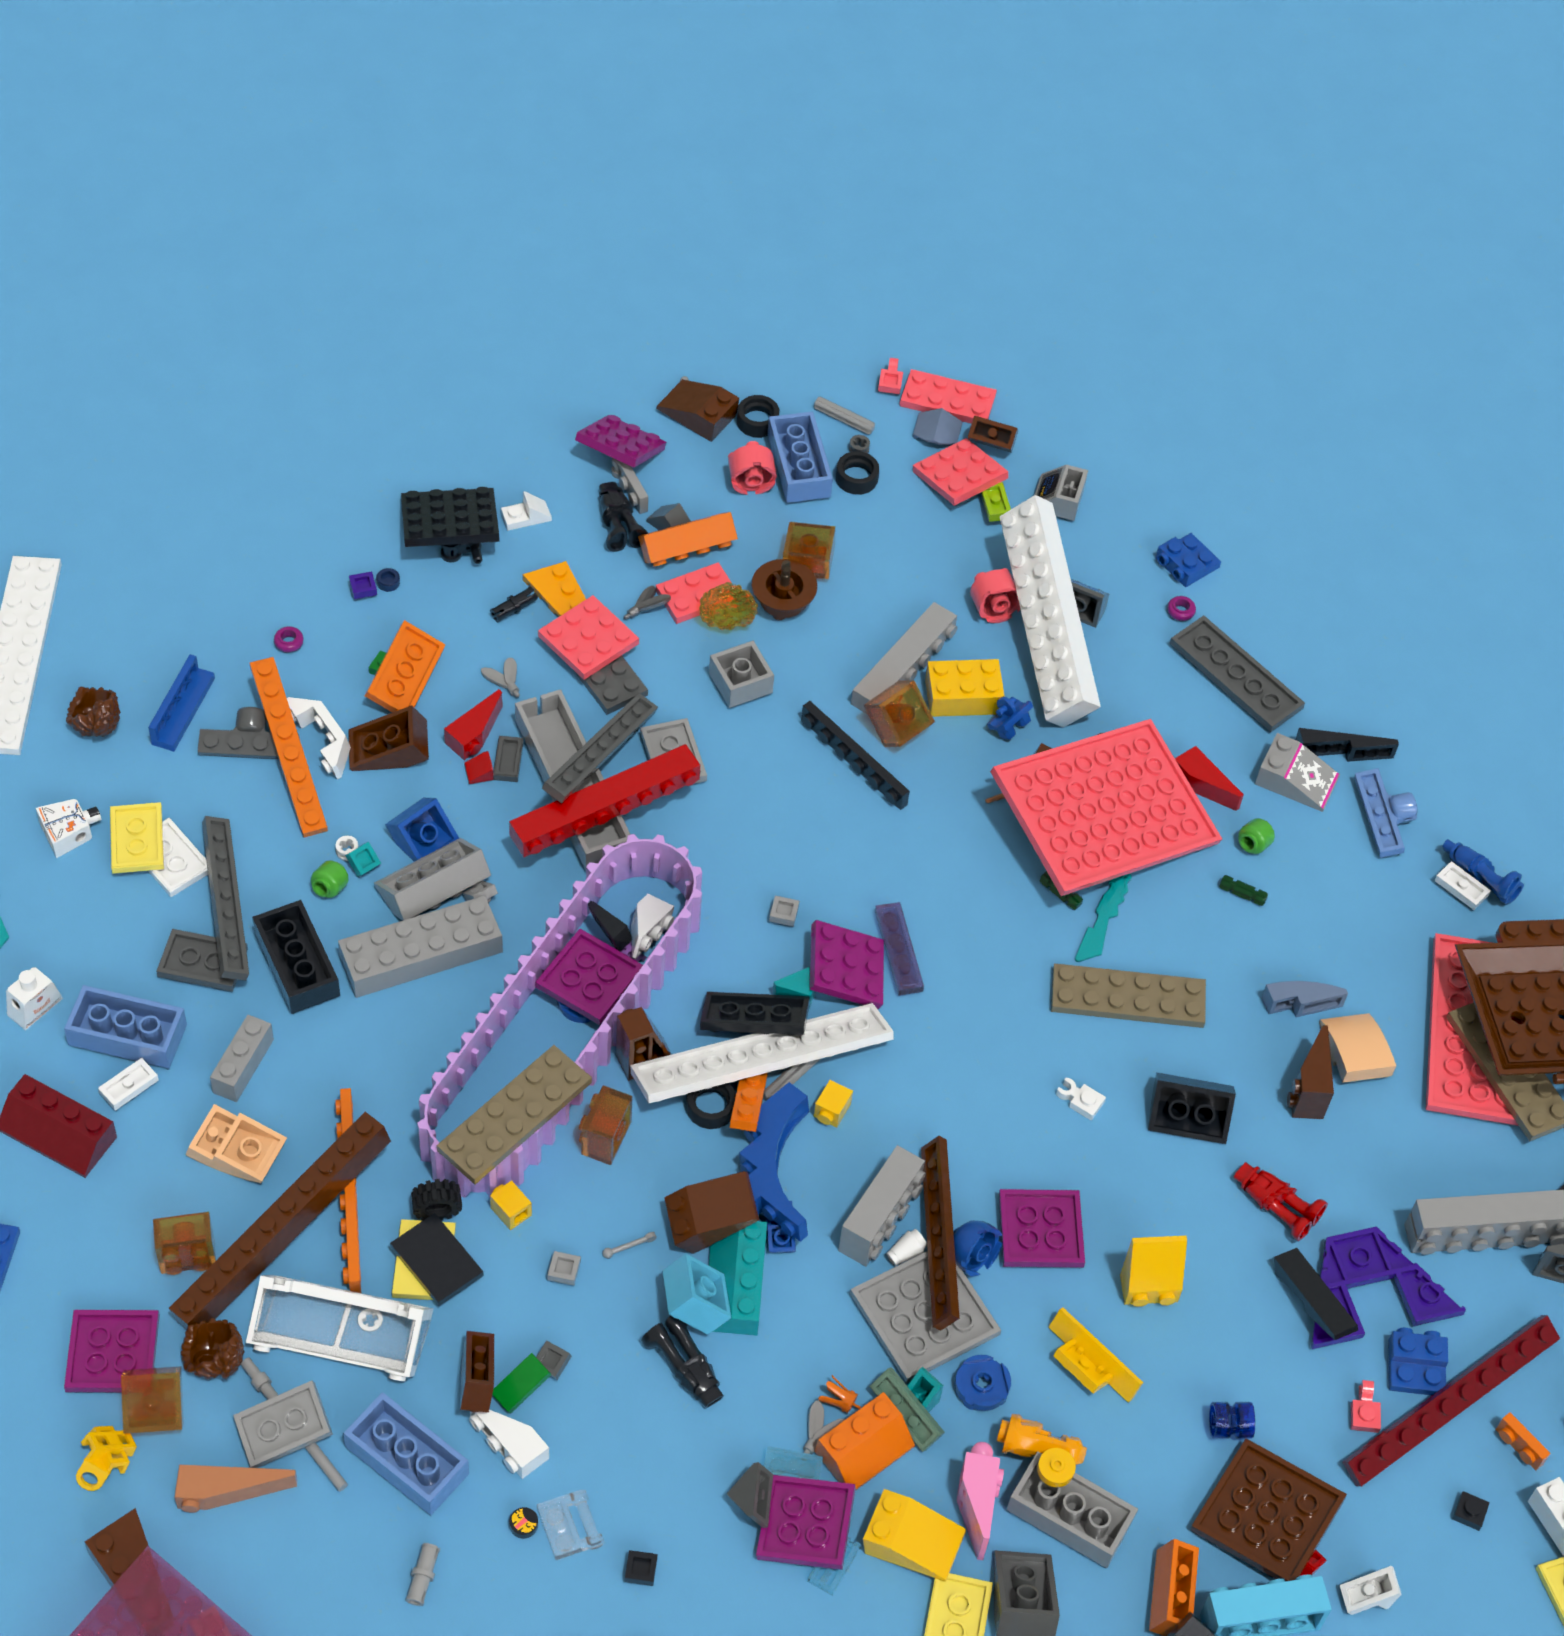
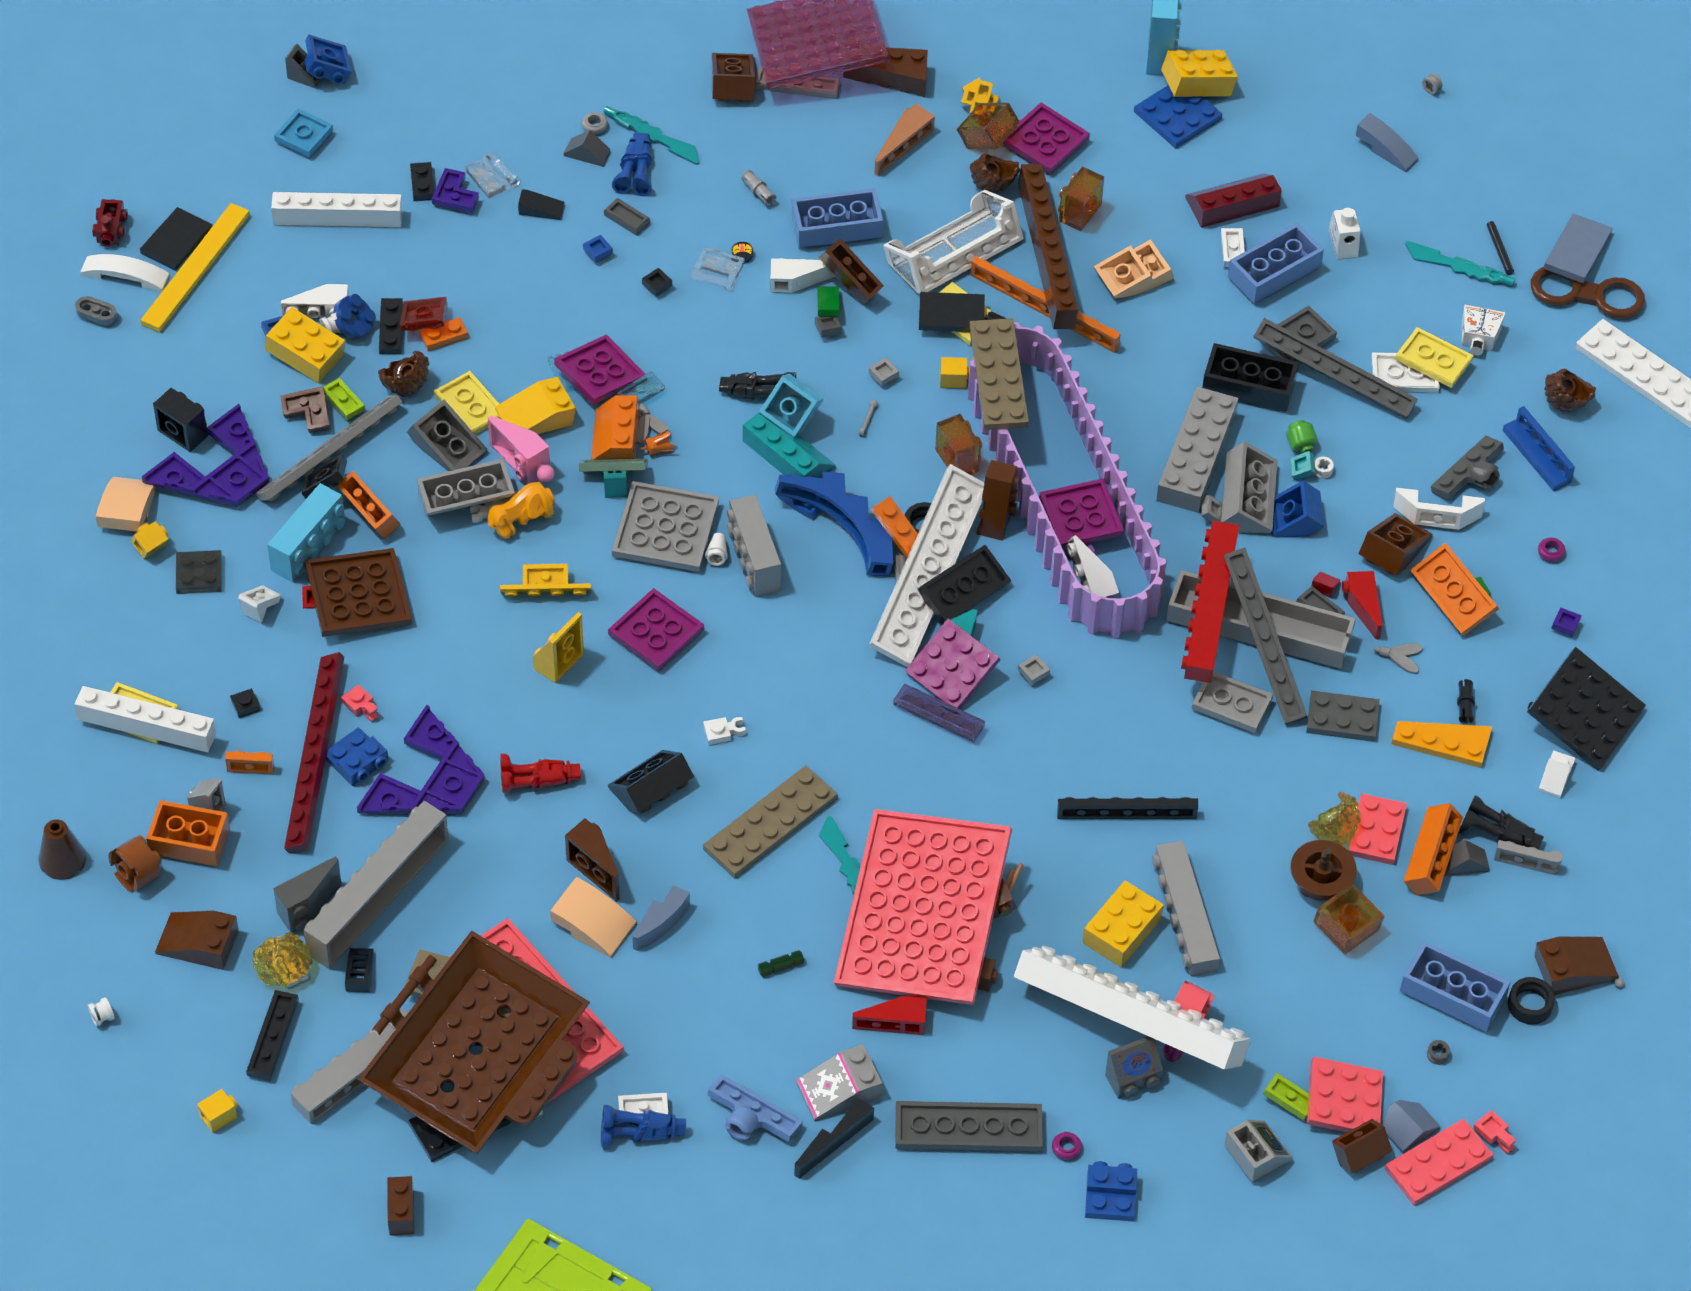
camera: 135 degrees right, 0 degrees up
(241, 1058) = (1196, 308): light grey brick -> none
(263, 1384) = (955, 191): light grey bar -> none
(283, 1424) = (914, 177): light grey plate -> none
(288, 747) = (1439, 476): orange plate -> none
(388, 579) = (1561, 645): dark blue tile -> none
(588, 637) = (1386, 716): coral plate -> none
(613, 928) = (1098, 537): black slope -> none
(621, 440) = (1576, 874): magenta plate -> none
(647, 601) = (1393, 785): flat silver piece -> none
(711, 1211) = (842, 451): reddish brown slope -> none
(741, 674) = (1264, 786): light grey brick -> none
(752, 468) = (1468, 938): coral brick -> none
(753, 1493) = (637, 350): dark grey slope -> none
(833, 1104) = (857, 584): yellow brick -> none
(844, 415) = (1481, 1067): light grey axle -> none
(861, 460) = (1412, 1009): black tyre -> none
(899, 713) = (1132, 849): clear orange brick -> none
(940, 1234) = (699, 556): reddish brown plate -> none
(976, 1246) = (680, 576): blue cylinder -> none
(982, 1398) = (590, 531): blue plate -> none
(1010, 712) = (1068, 928): blue hips -> none
(1056, 1467) = (493, 485): yellow wheel -> none
(1241, 1420) = (429, 619): clear blue wheel -> none
(1256, 836) = (814, 1004): bright green head -> none
(1317, 1297) = (447, 721): black slope -> none

